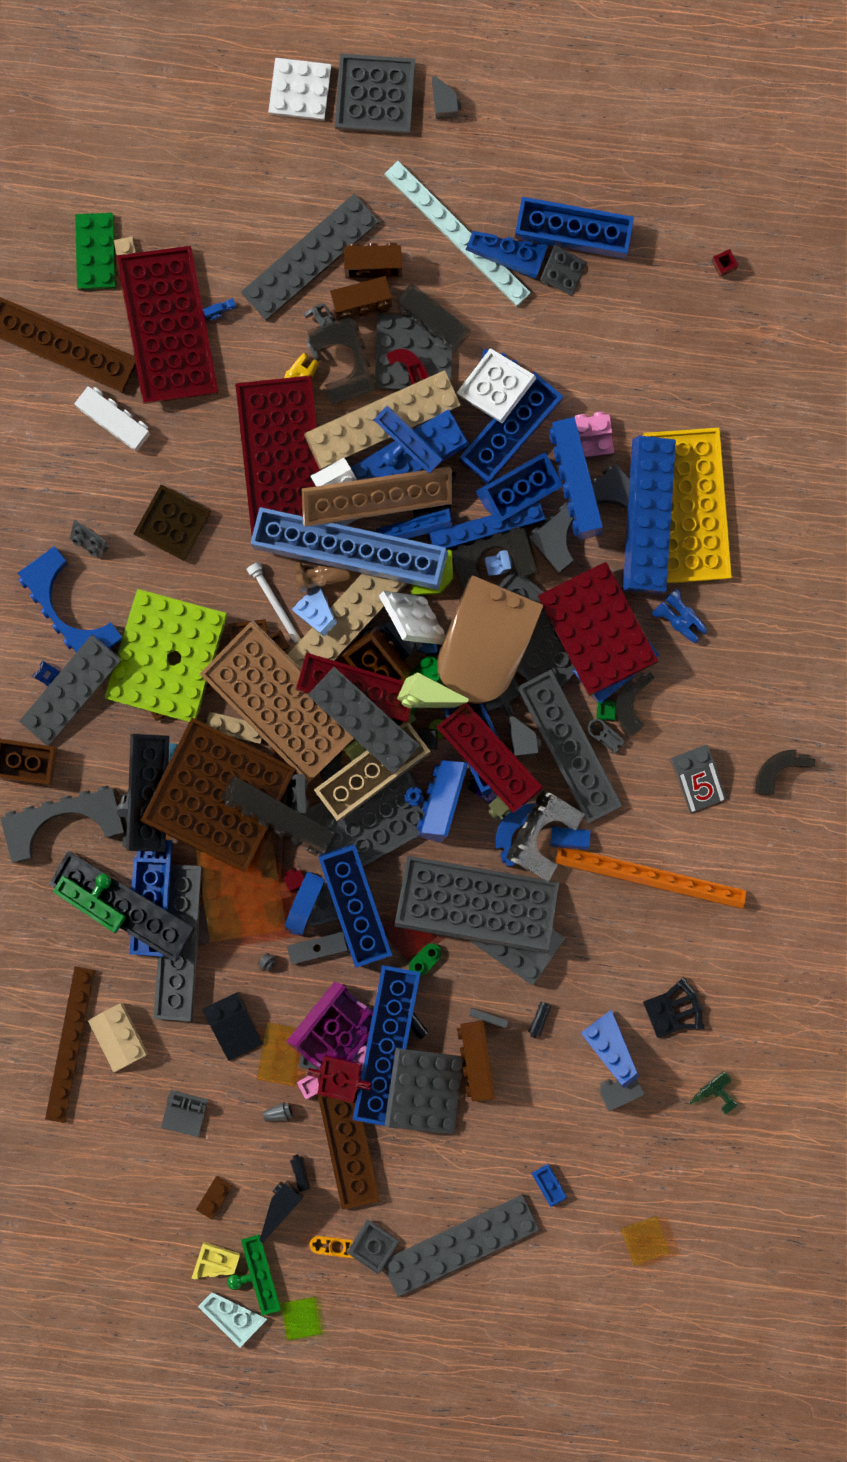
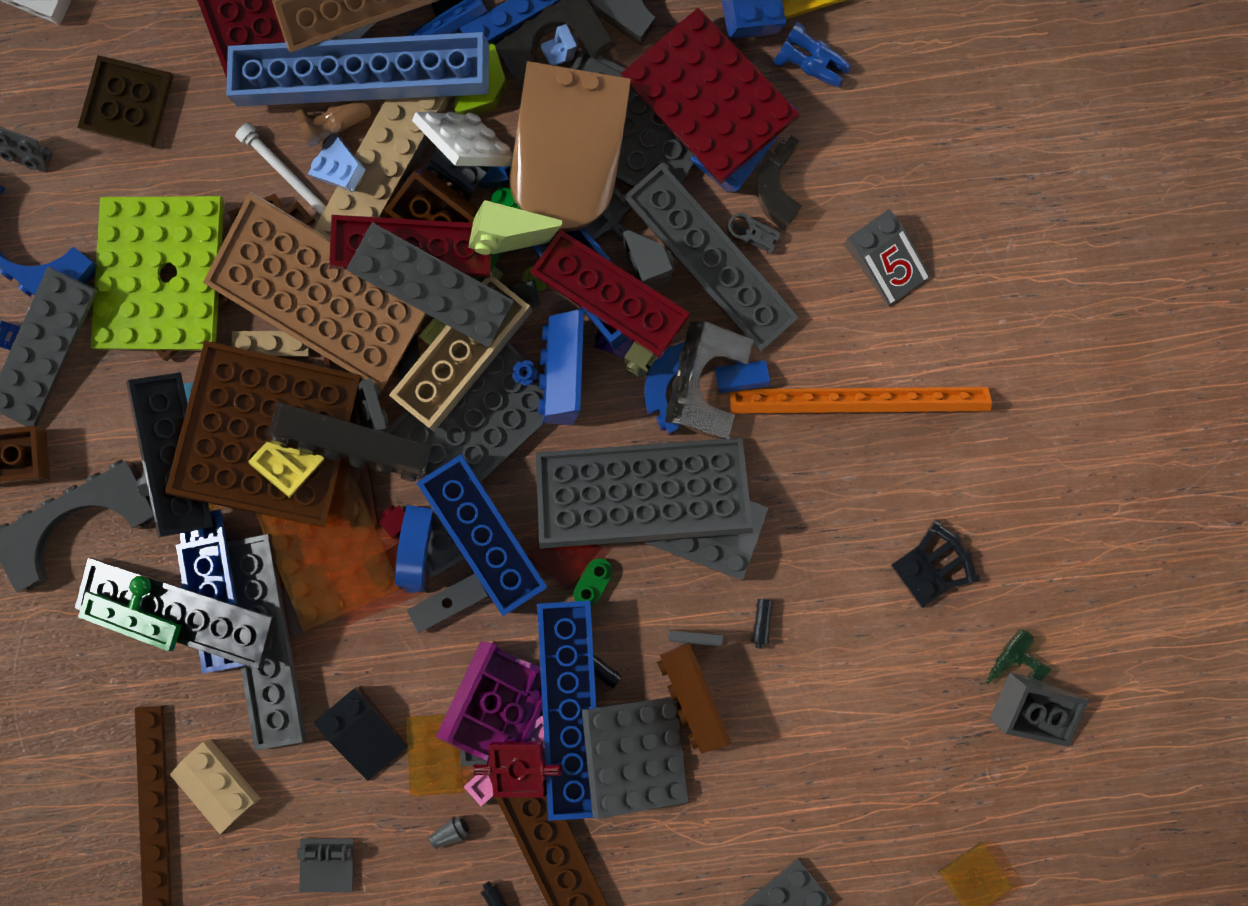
camera: 10 degrees left, 0 degrees up
(228, 822) = (285, 466): none -> light yellow wing
(267, 962) = (386, 638): dark grey plate -> none
(549, 1185) = (830, 838): blue plate -> none
(606, 710) = (746, 200): green tile -> none
(609, 1045) = (863, 633): wing -> none
(615, 1095) = (893, 689): dark grey brick -> none
(720, 1132) = (1038, 710): none -> dark grey slope
(766, 775) = (975, 233): clear smoke arch -> none

